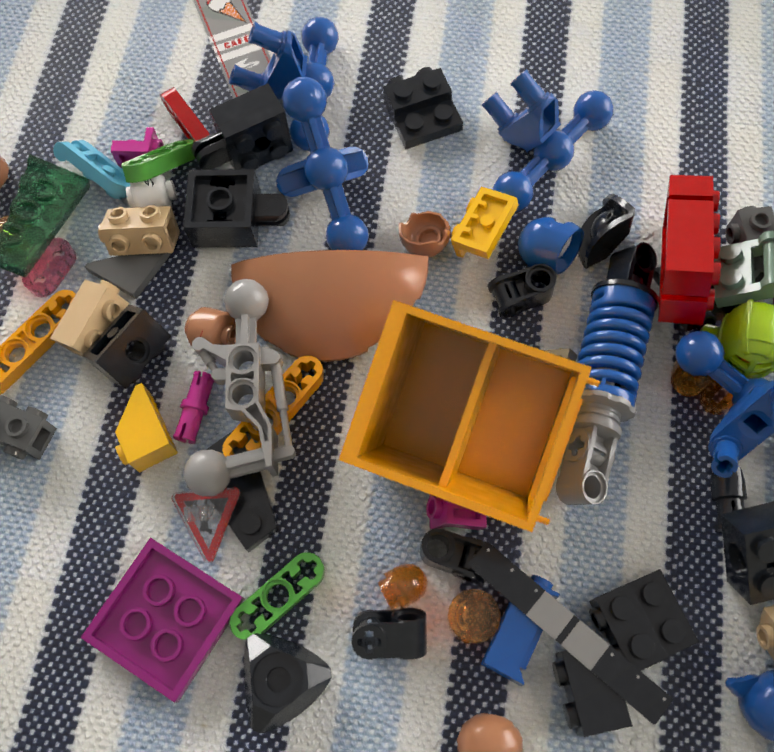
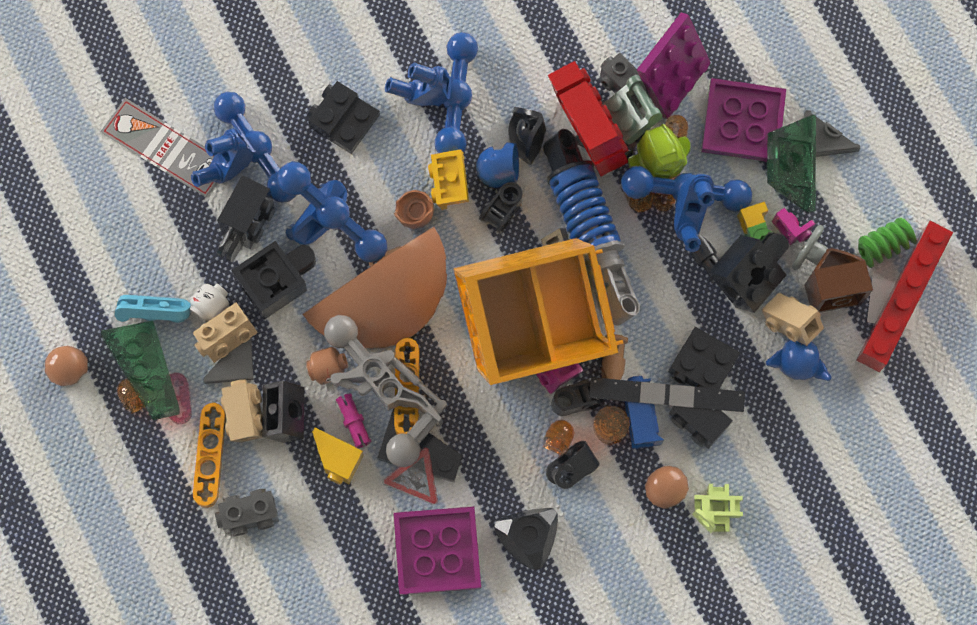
camera: 45 degrees left, 5 degrees up
(129, 149) = (172, 281): dark pink bracket -> none
(158, 161) = (200, 275): bright green beam -> none
(183, 115) = (187, 233): red beam -> none
(262, 593) = (489, 472): bright green beam -> none
(527, 547) = (614, 365): none -> medium nougat piece

